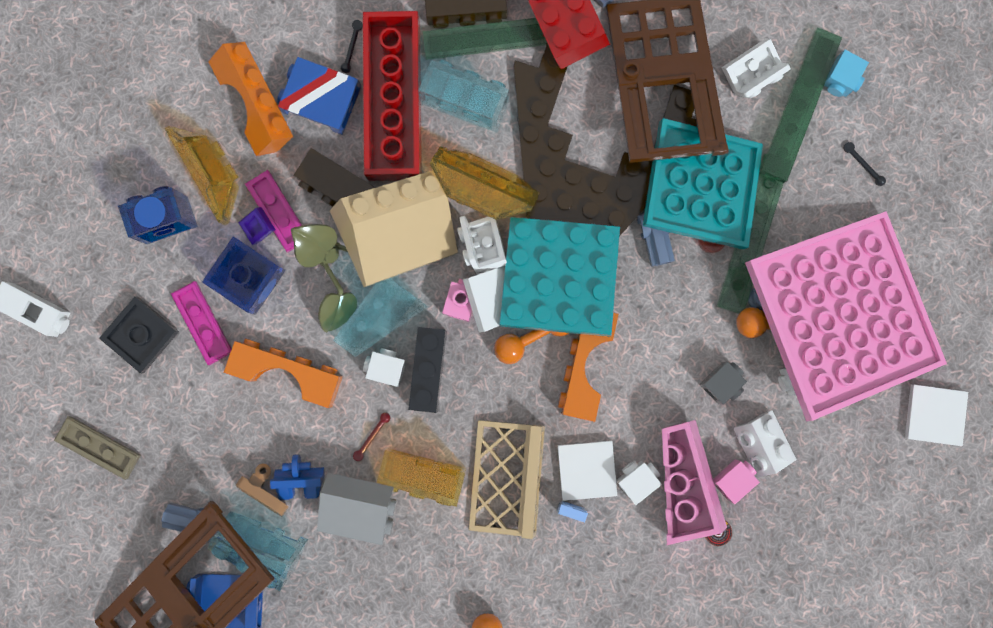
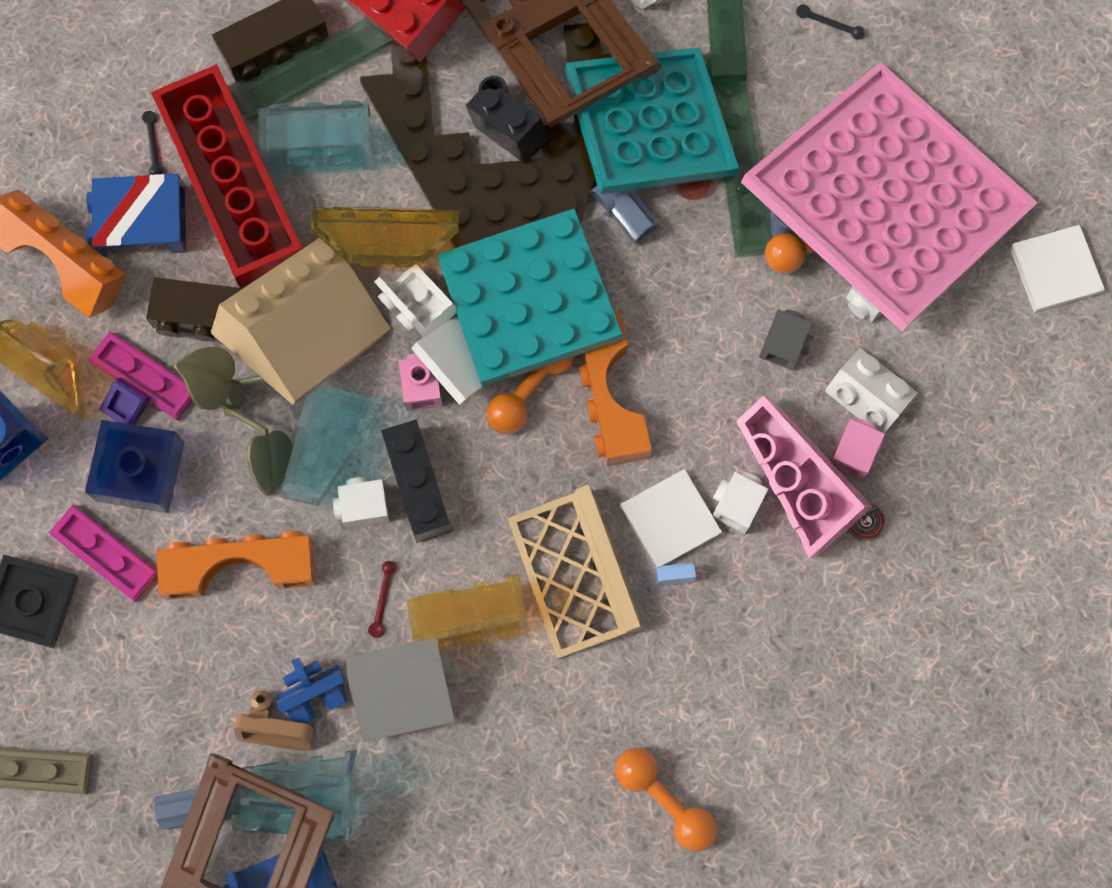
camera: 25 degrees left, 10 degrees down
(602, 138) = (506, 119): none -> black hinge

